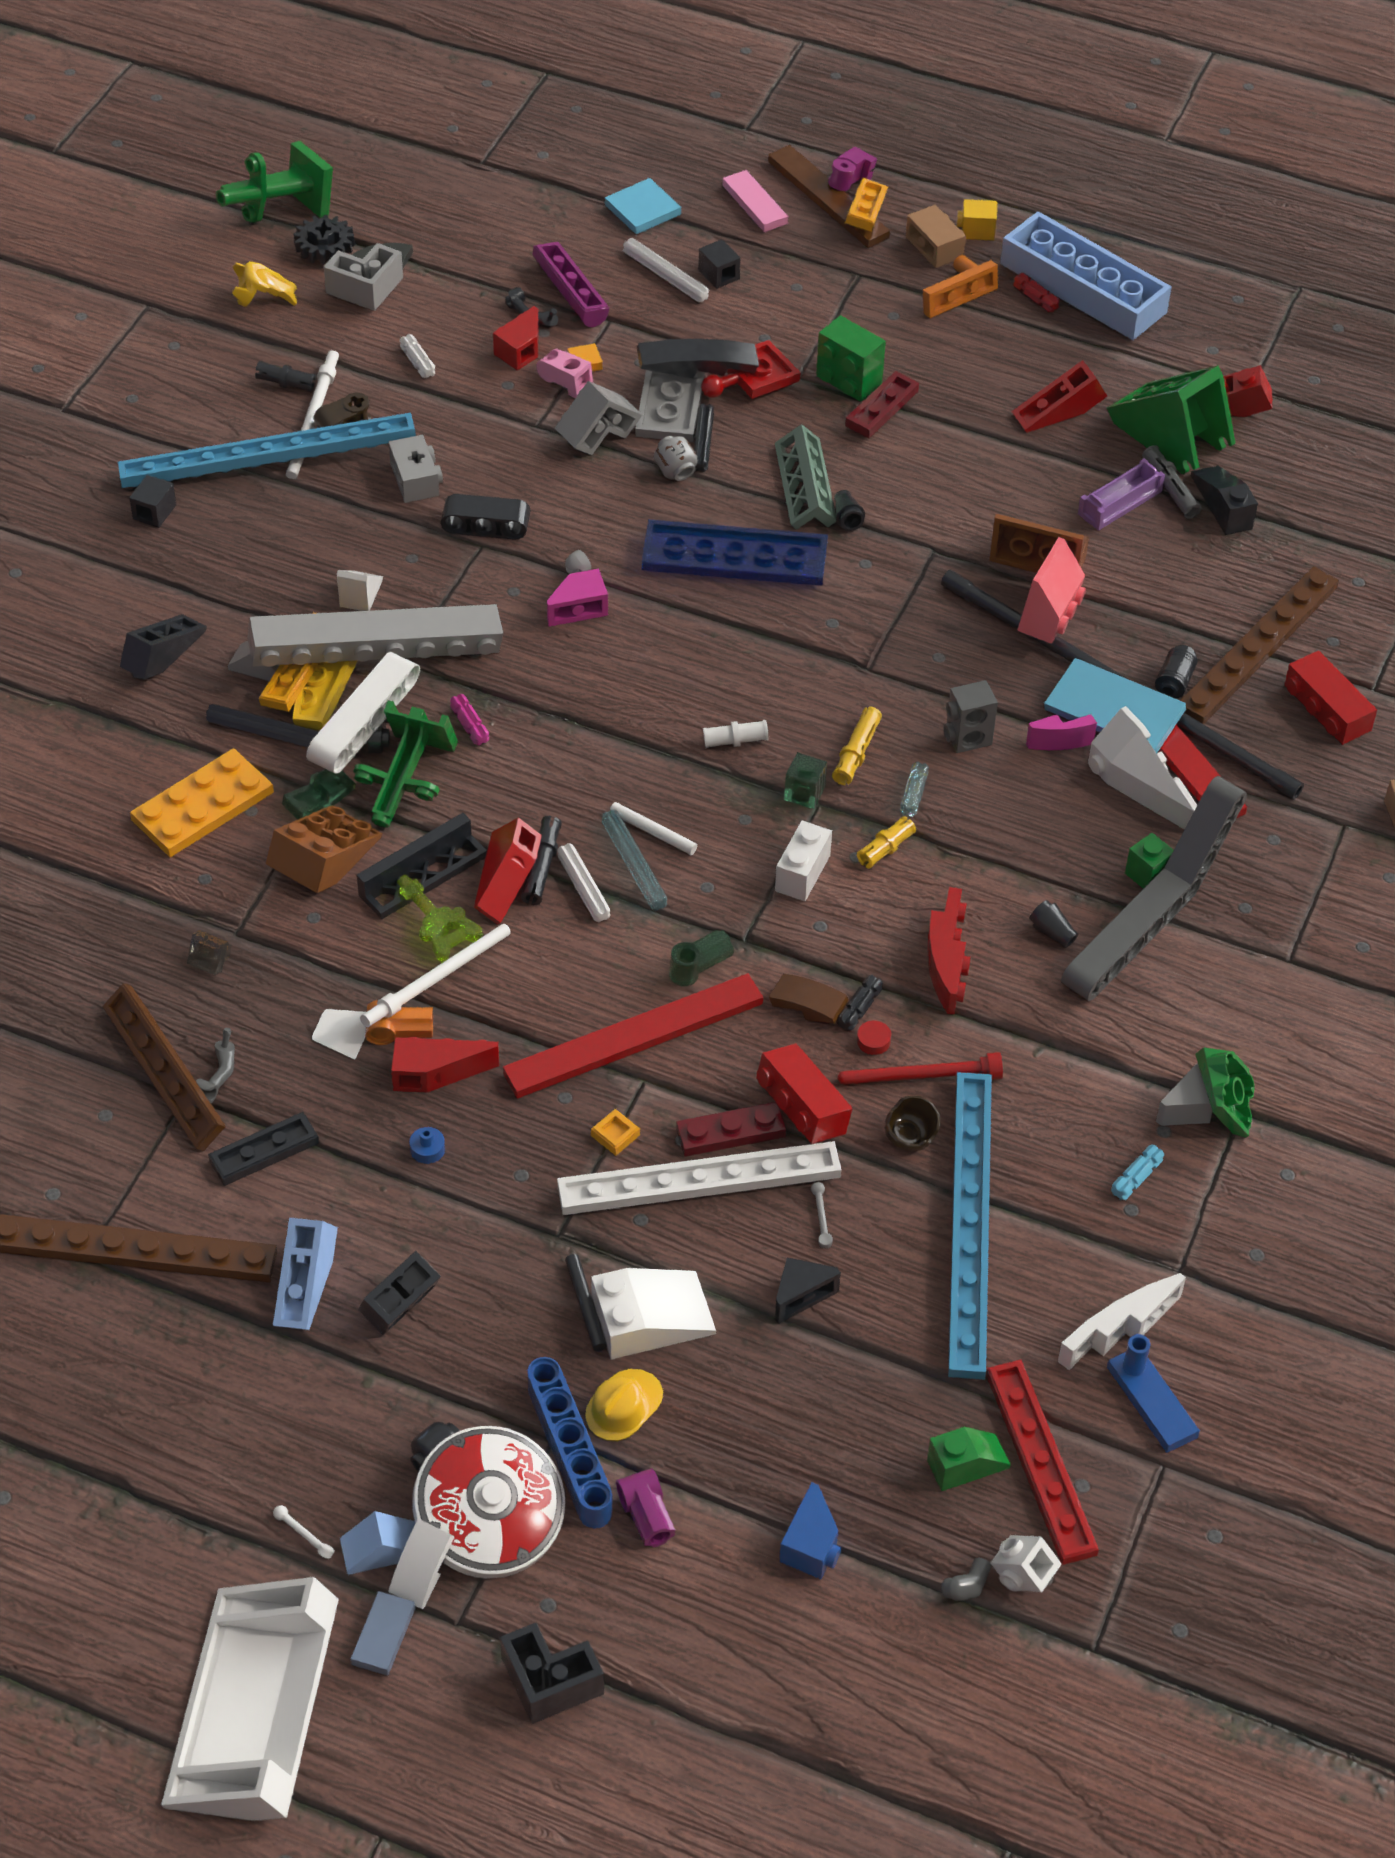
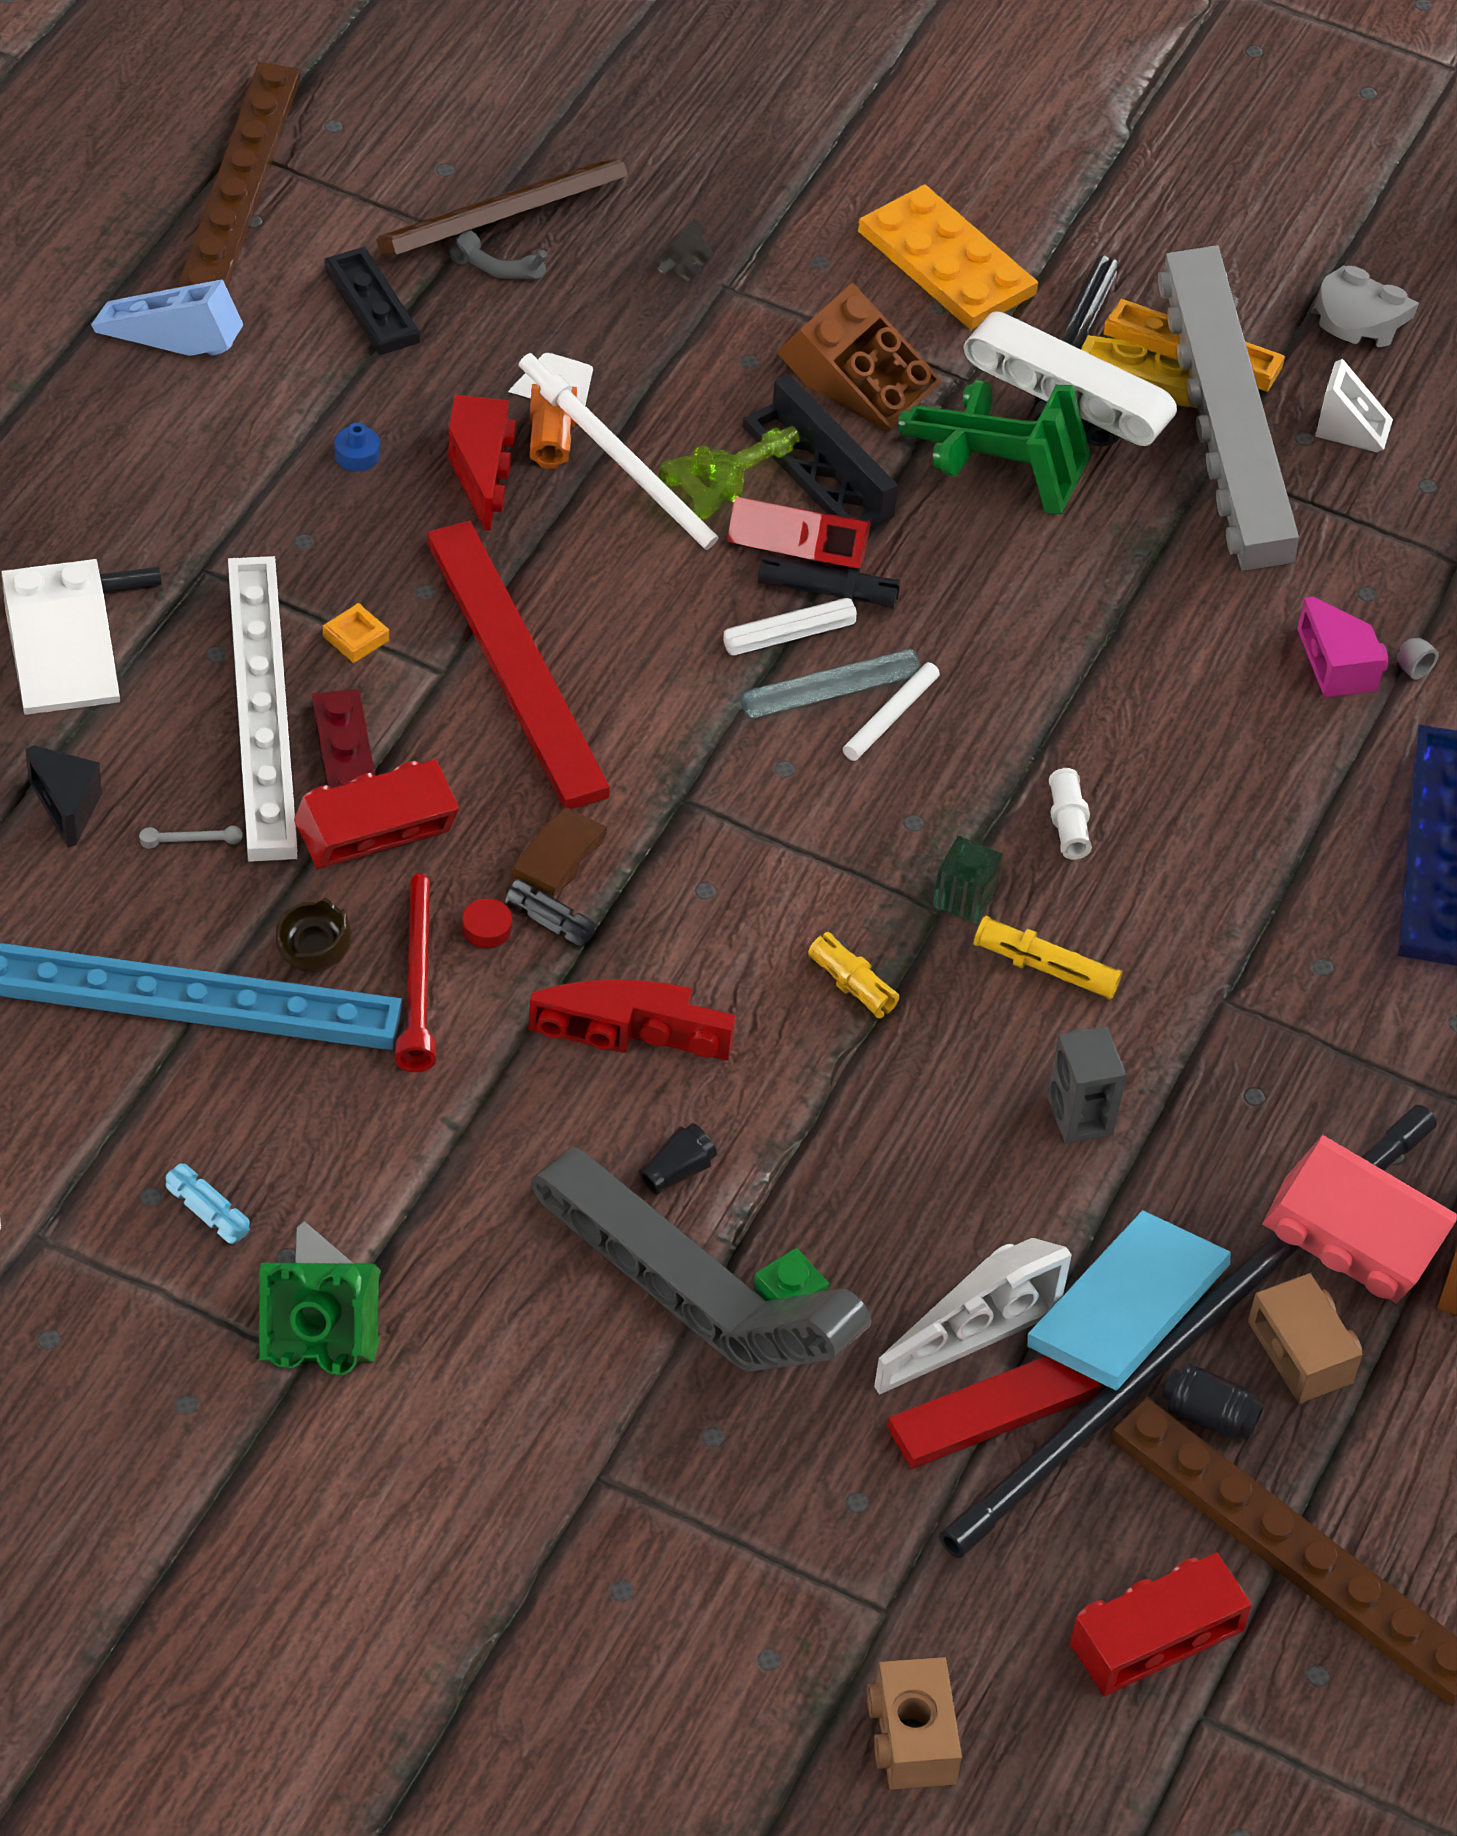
camera: 90 degrees right, 0 degrees up
(159, 645) = (1223, 212): black slope -> none
(250, 578) = (1358, 307): none -> light grey slope
(323, 791) = (946, 357): clear green slope -> none
(399, 1292) = (115, 393): black brick -> none
(469, 719) = (1099, 523): dark pink axle -> none
(693, 958) = (636, 728): clear green piece -> none
(803, 860) = (809, 861): white brick -> none
(914, 789) = (962, 1023): clear light blue axle -> none
(1055, 735) = (1072, 1219): dark pink slope -> none
(1122, 631) = (1305, 1337): none -> medium nougat brick

